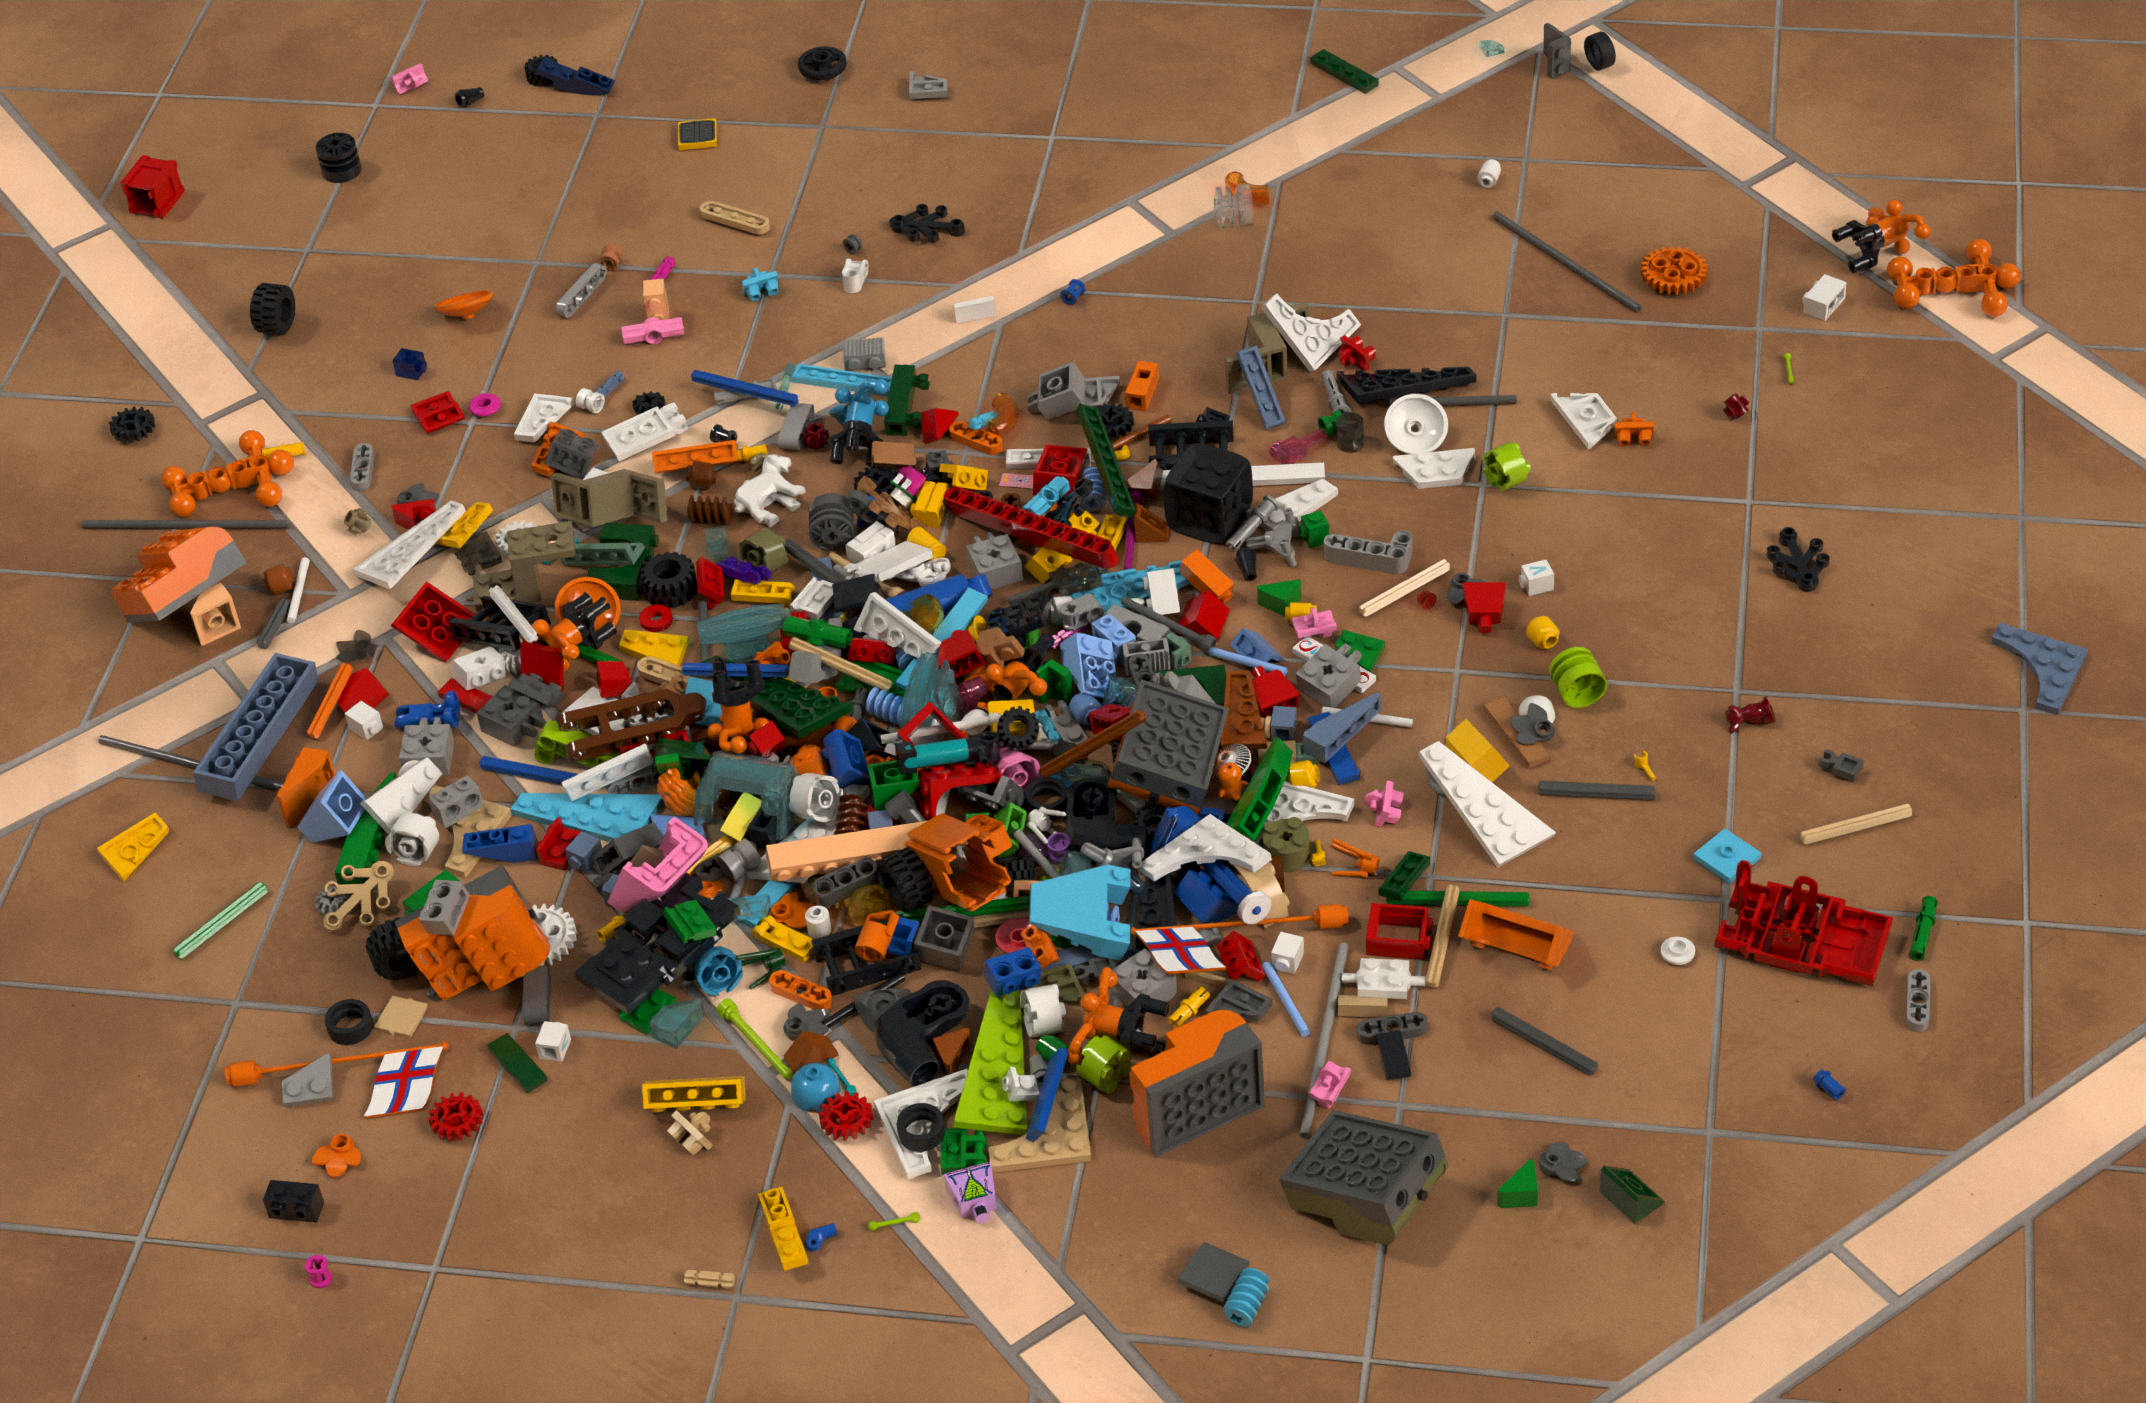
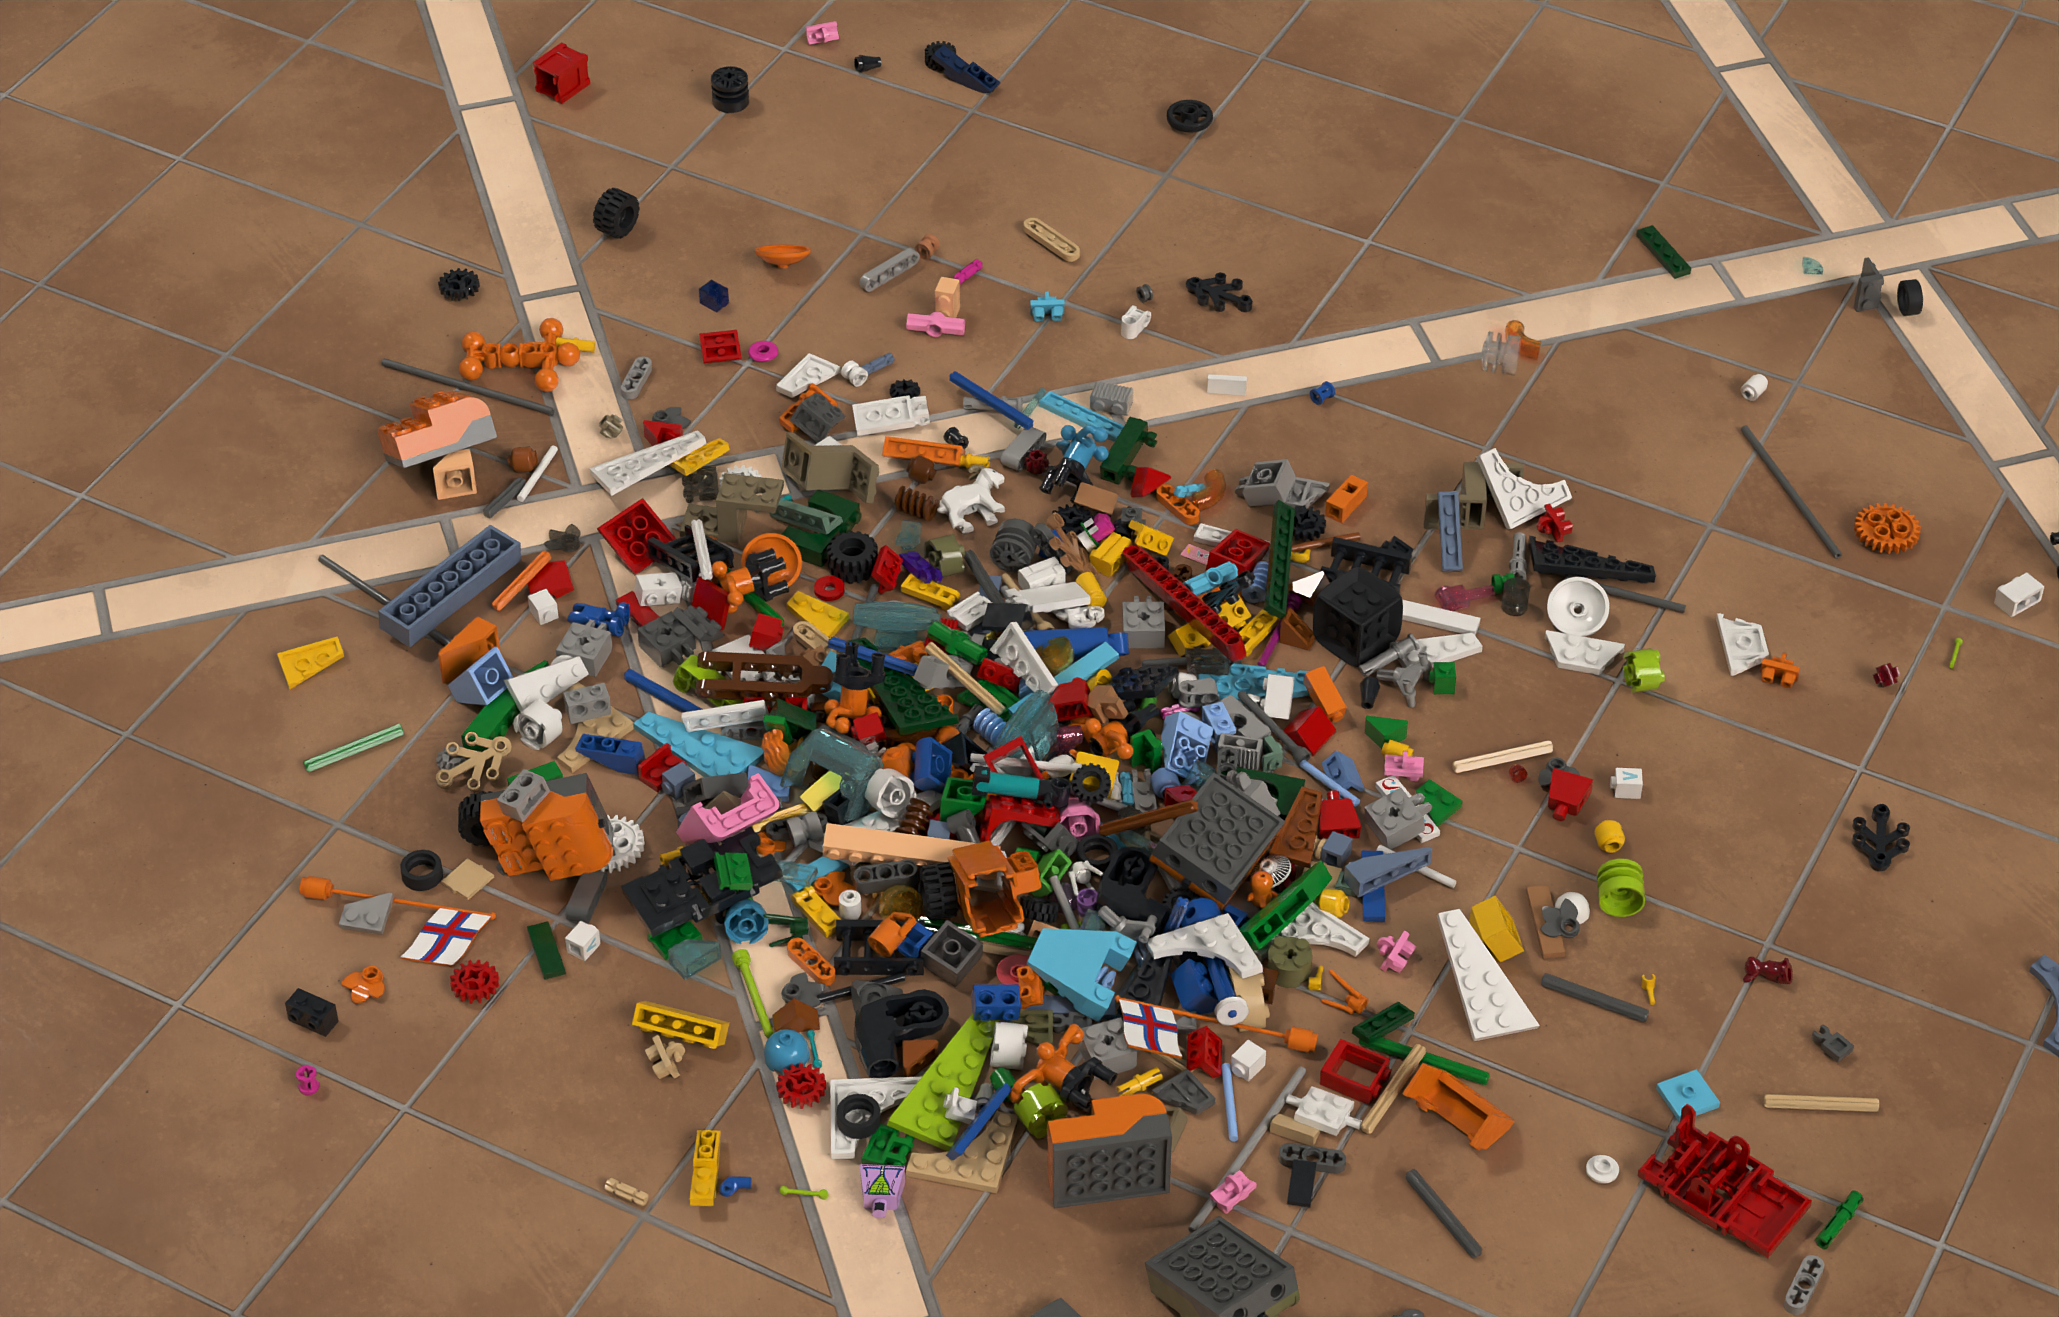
camera: 15 degrees right, 0 degrees up
(697, 134) = (1052, 152): tile -> none
(927, 87) = (1274, 163): light grey wing -> none
(1370, 554) = (1484, 716): light grey beam -> none

